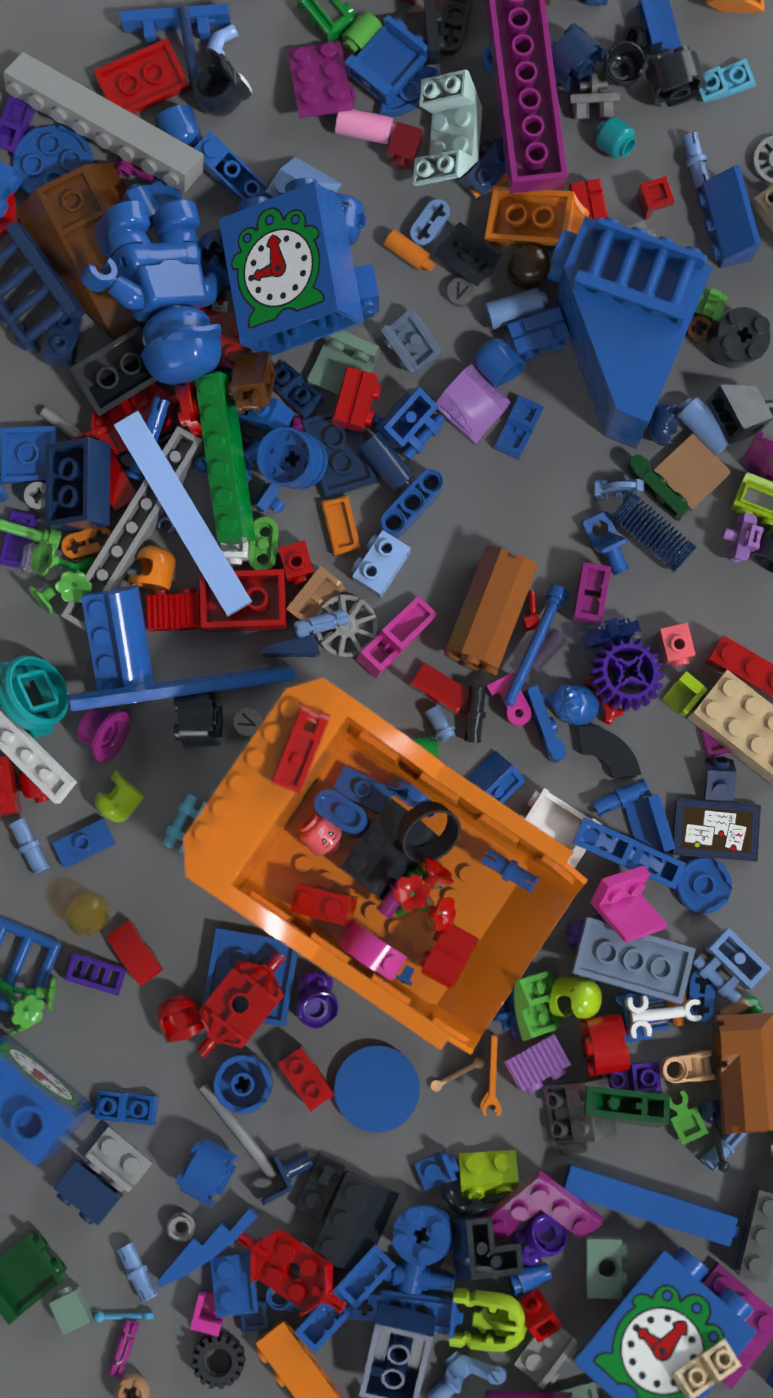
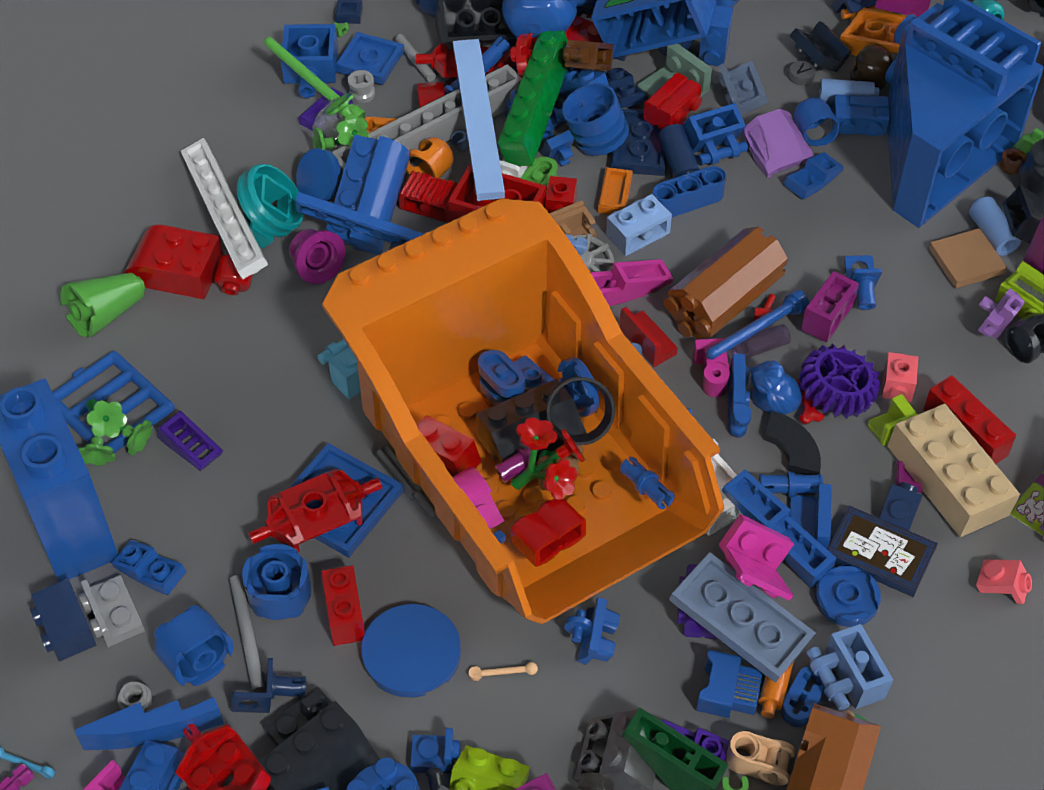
camera: 20 degrees right, 30 degrees down
(29, 846) = (194, 320): medium blue pin -> none
(59, 638) = (318, 174): none -> blue tile
(77, 485) = (399, 79): dark blue brick -> none
(84, 843) = (245, 338): blue plate -> none
(87, 914) = (212, 387): clear yellow helmet -> none
(120, 802) = (298, 311): lime helmet -> none
(134, 953) = (238, 437): red slope -> none
(137, 1272) = (63, 722): medium blue pin -> none
(178, 1018) = (246, 503): red helmet -> none
(300, 749) = (487, 239): red plate -> none
(316, 1001) = (391, 540): dark purple hair -> none
(320, 835) = (471, 393): coral head -> none
(409, 251) = (768, 32): orange cylinder -> none
(434, 227) = (801, 18): medium blue beam -> none
(475, 713) = (674, 361): black pin -> none
(489, 1097) = (538, 671): orange flag -> none
(533, 1005) = (619, 624): bright green slope -> none
(537, 1063) = (594, 687): medium lavender brick -> none
(584, 996) = (673, 634): lime helmet -> none
(604, 1044) = (677, 691): red brick -> none
(613, 629) = (839, 337): clear blue hinge -> none
(621, 489) = (890, 242): medium blue piece -> none
(640, 1015) = (728, 676): white bar -> none
(657, 487) = (929, 256): dark green hinge -> none
(663, 423) = (954, 208): dark blue hair -> none
(676, 557) = (926, 305): dark blue piece -> none

